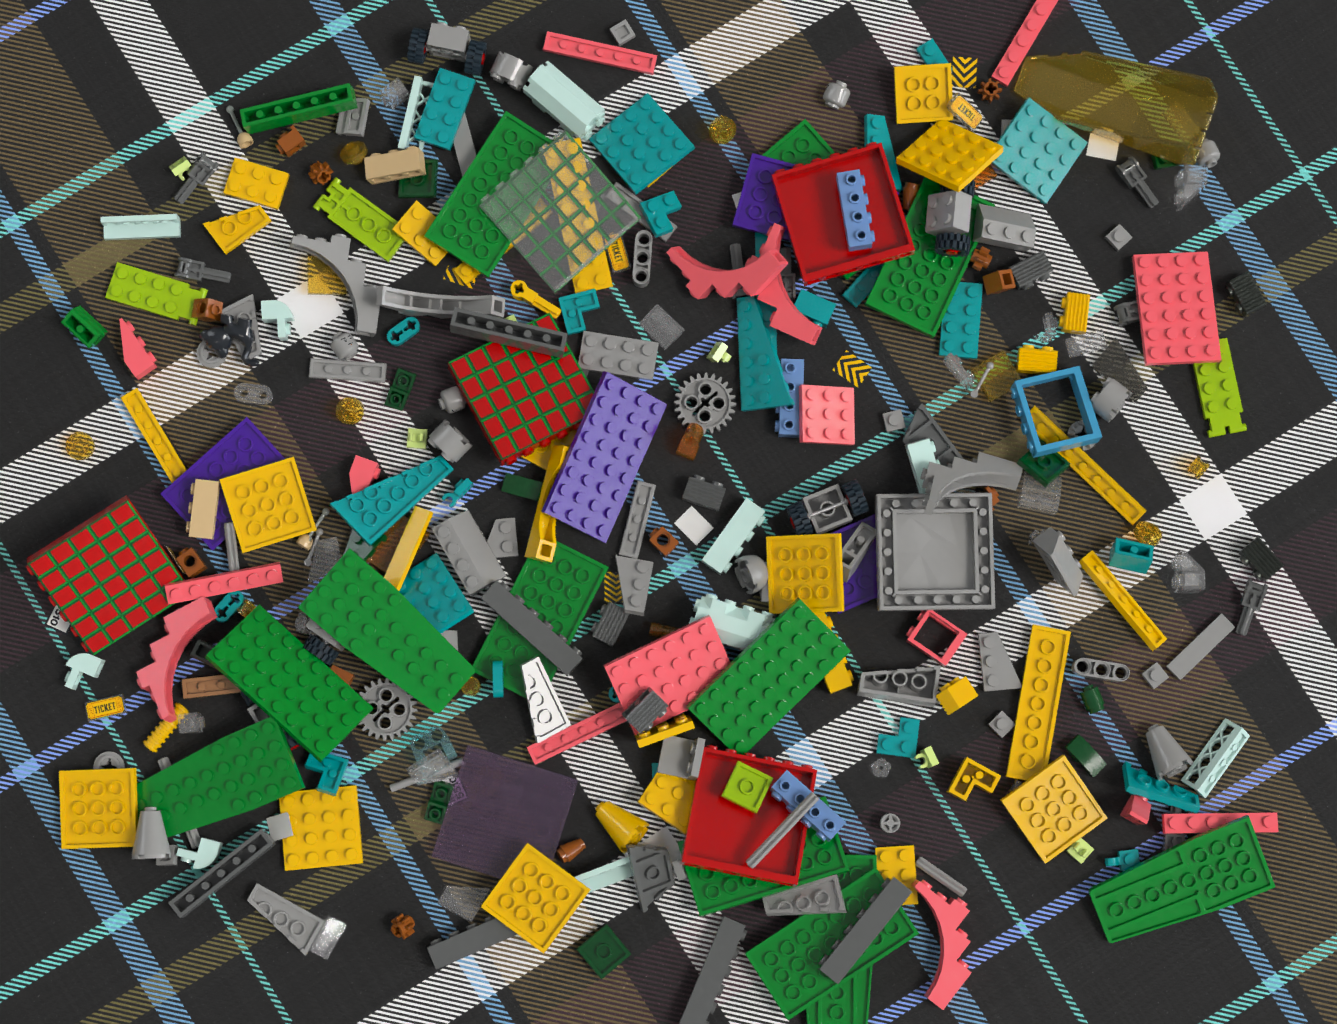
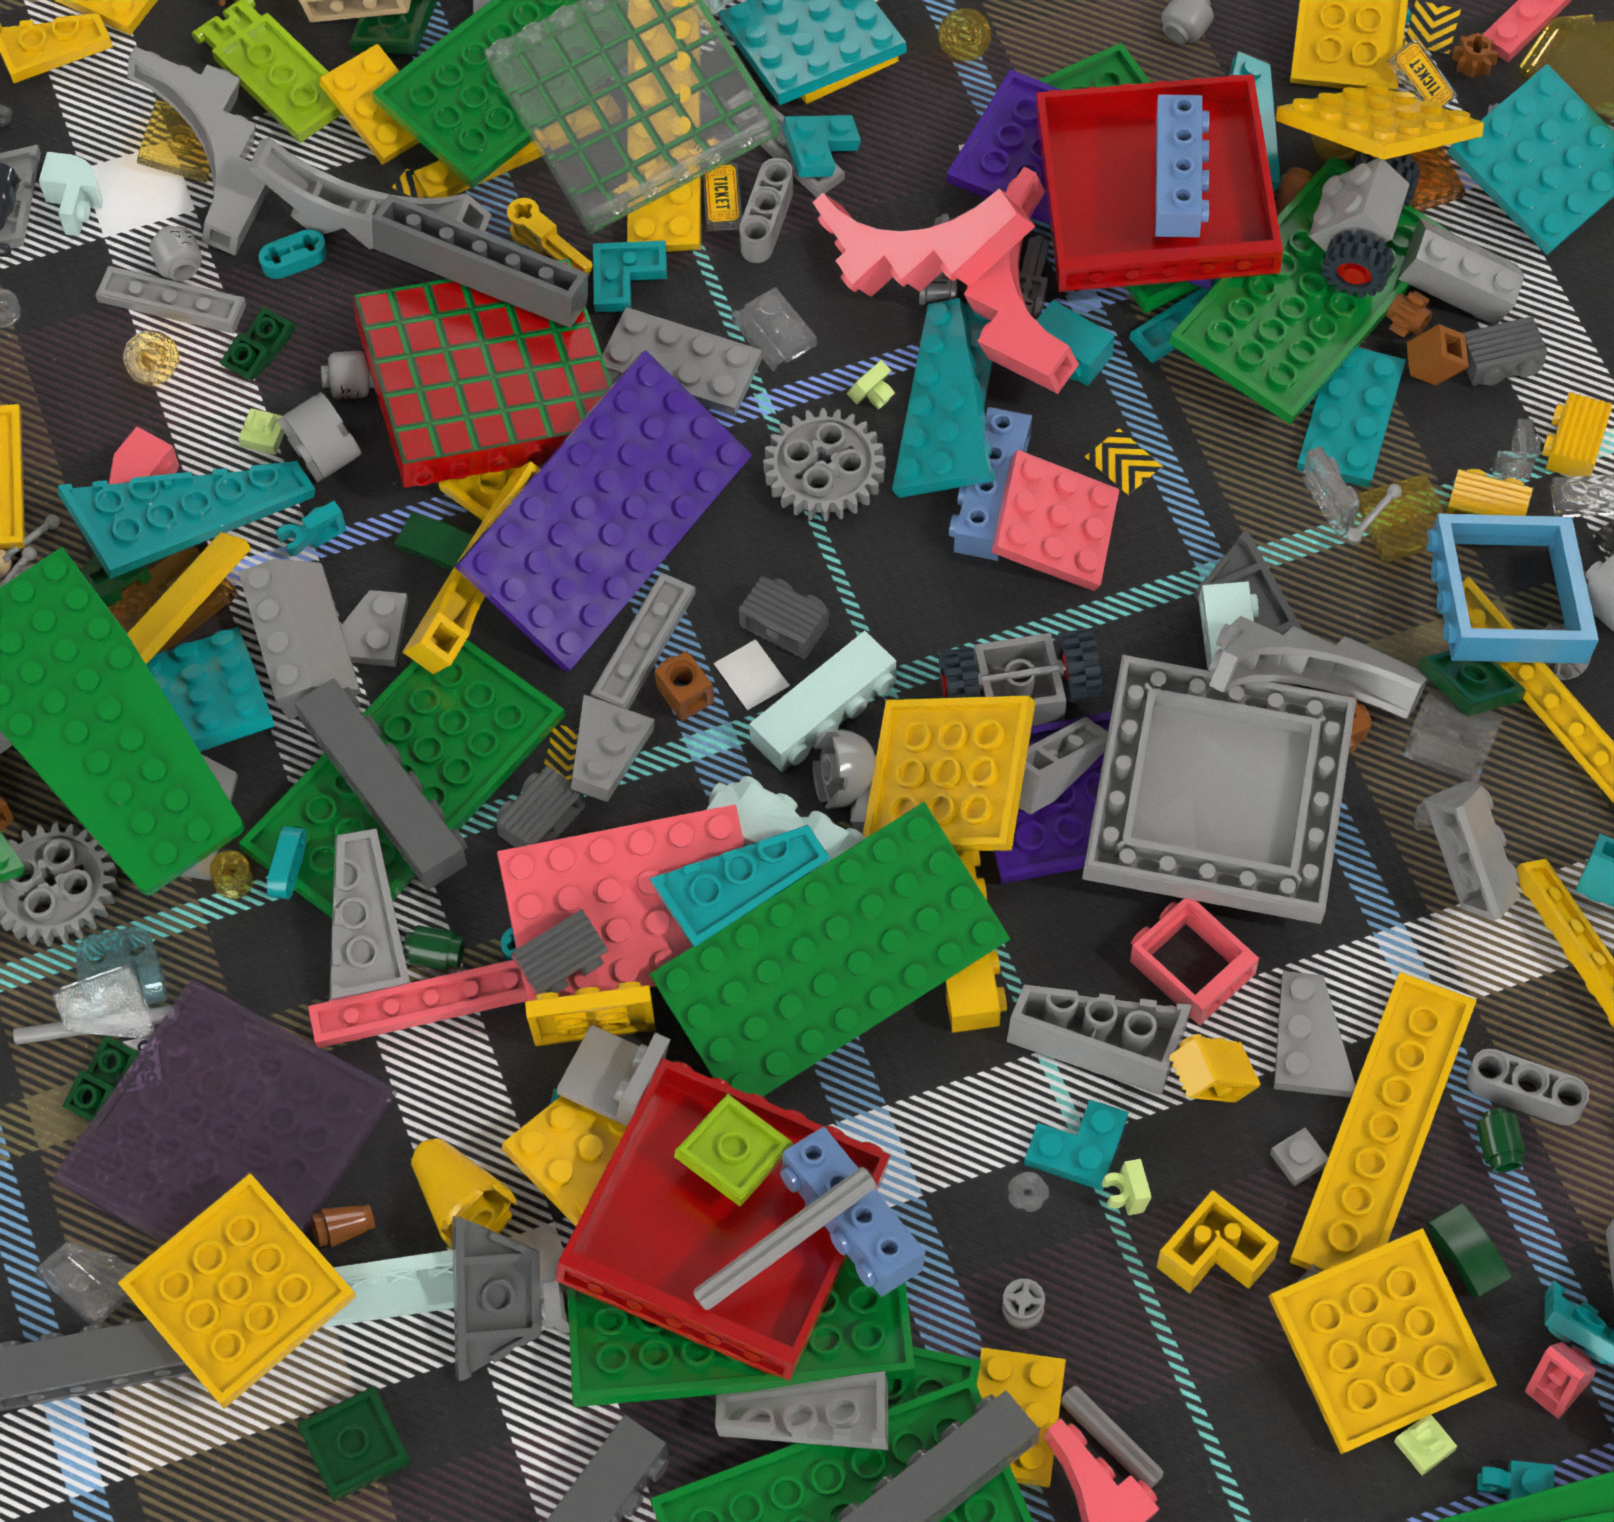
camera: 15 degrees right, 20 degrees down
(577, 704) = (434, 948): none -> dark green brick
(690, 441) = (775, 525): clear orange piece -> none
(717, 658) = (726, 887): none -> teal wing
(893, 421) = (1186, 561): light grey plate -> none

